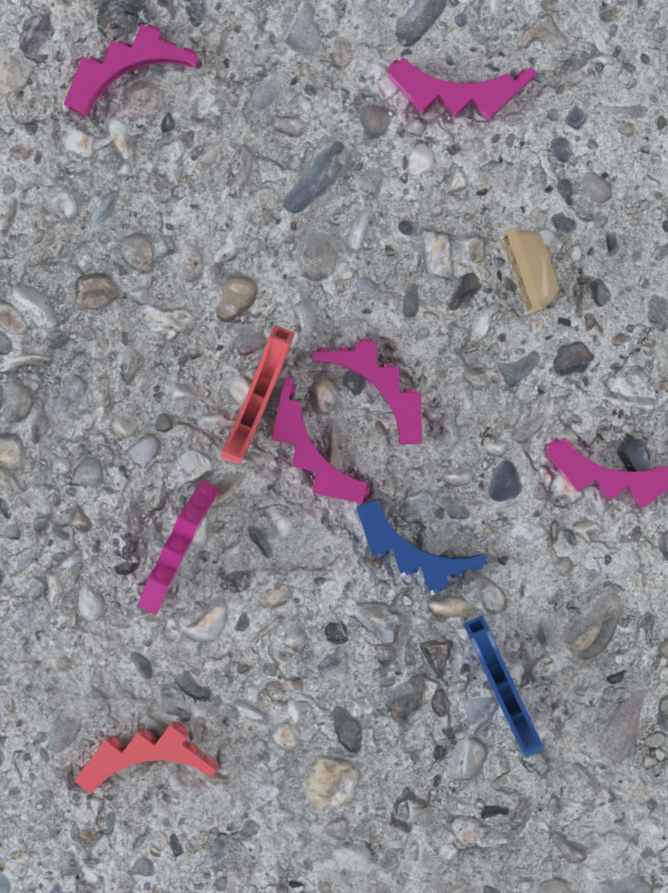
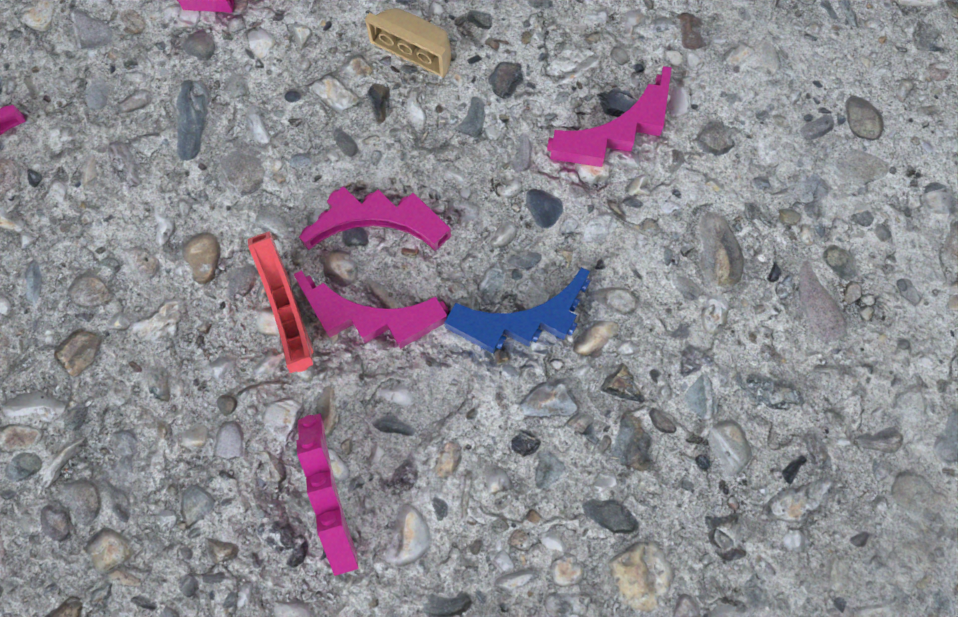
camera: 45 degrees left, 15 degrees down
(503, 686) = (693, 354): blue arch -> none

